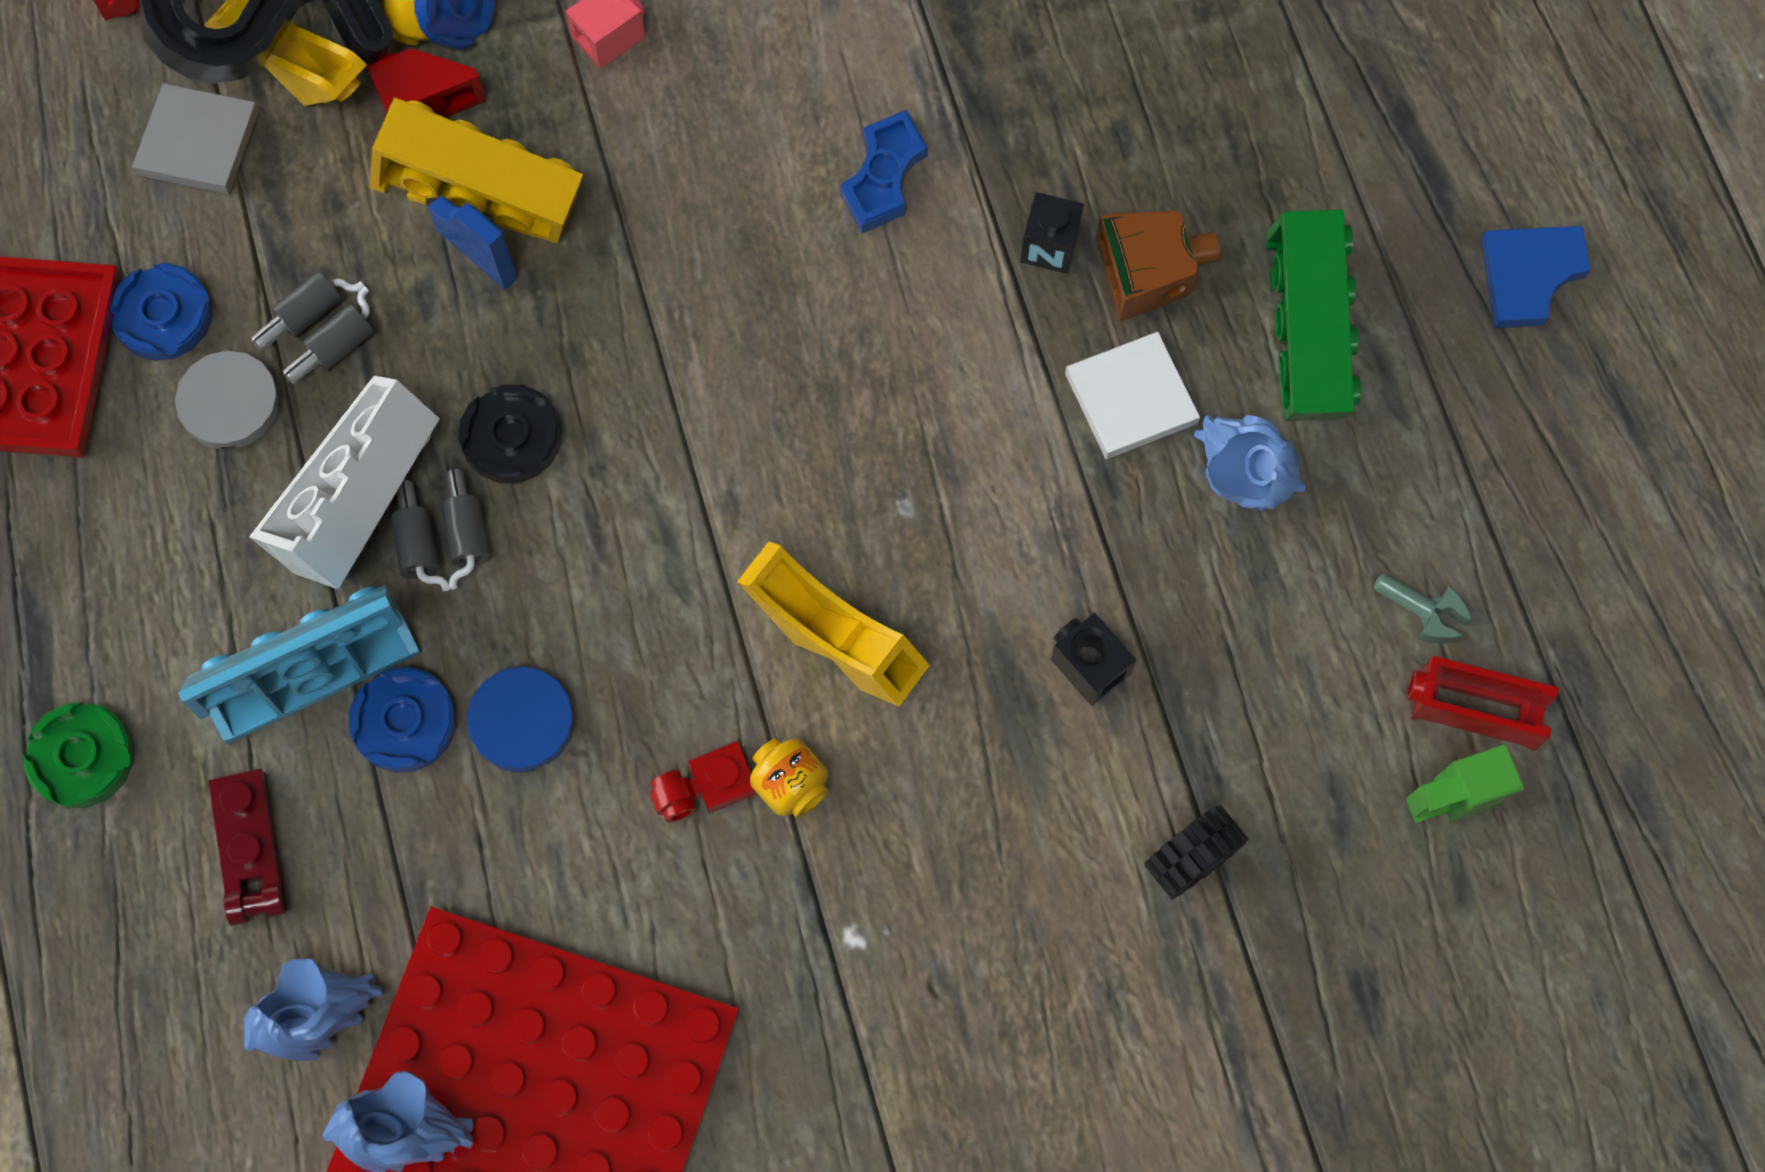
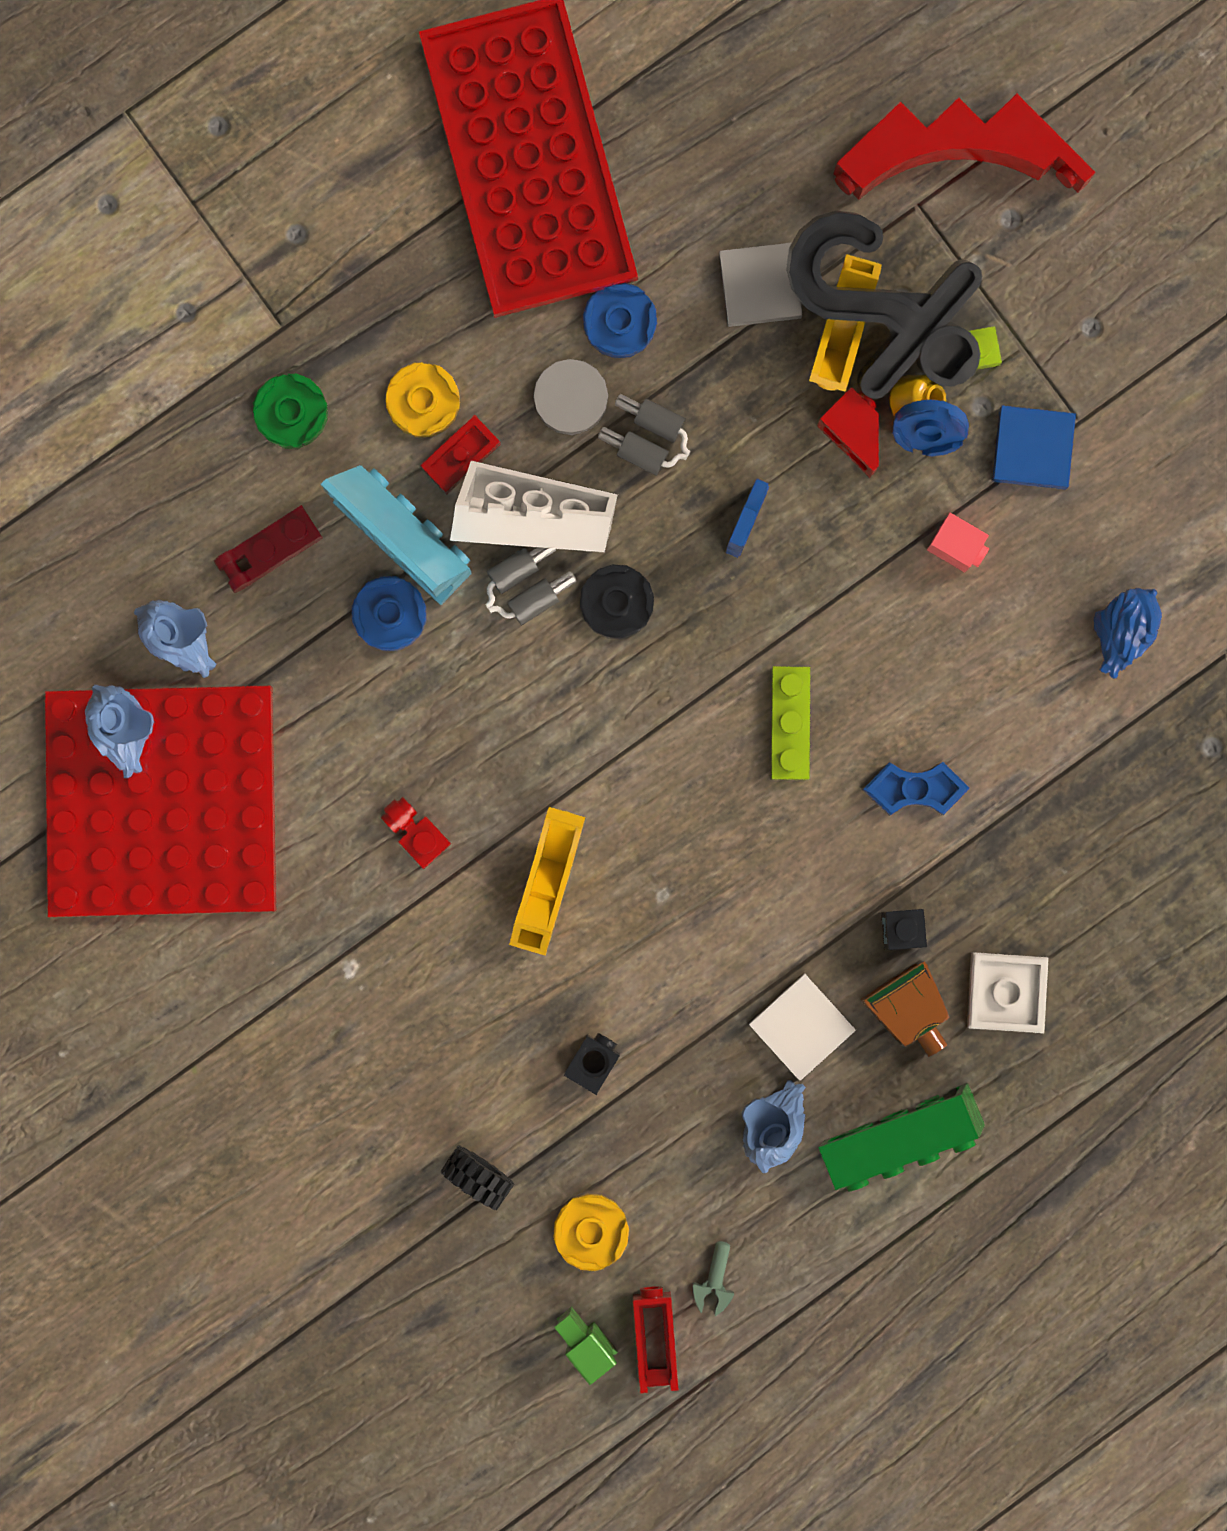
camera: 70 degrees right, 15 degrees up
(145, 581) = (422, 399): none -> yellow tile
(235, 558) = (452, 459): none -> red plate
(464, 165) = (798, 500): yellow wedge -> none
(520, 719) = (416, 692): blue tile -> none
(747, 283) = (790, 723): none -> lime plate
(789, 777) = (438, 887): yellow head -> none
(1169, 152) = (1007, 992): none -> white tile
(1313, 741) = (591, 1232): none -> yellow tile
(1528, 268) = (1005, 1283): blue tile -> none

